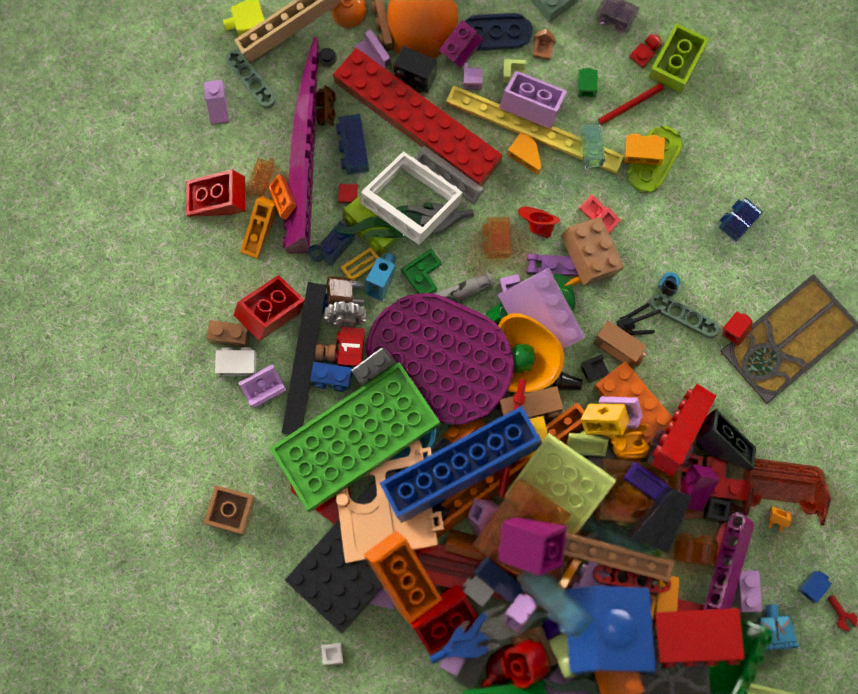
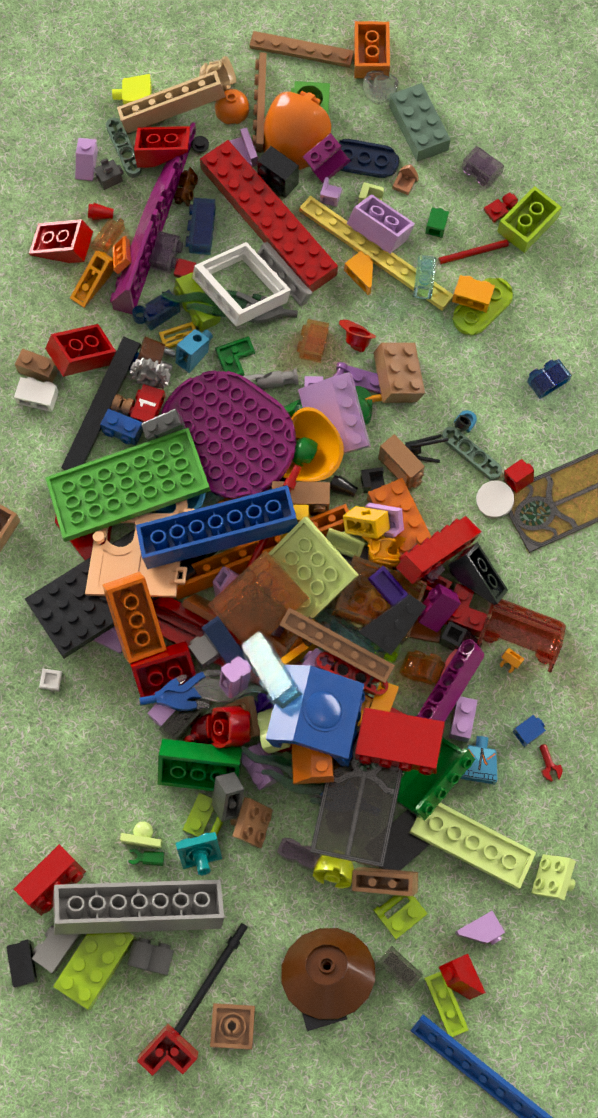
camera: 10 degrees right, 5 degrees down
(244, 111) = (108, 173): none -> dark grey brick
(245, 154) = (99, 212): none -> red cone
(262, 386) = (54, 420): lavender bracket -> none
(289, 69) = (160, 144): none -> red slope
(323, 181) = (165, 252): none -> brick
(532, 545) = (262, 613): magenta slope -> none
(594, 208) = (412, 335): coral slope -> none
(720, 357) = (495, 499): none -> white tile

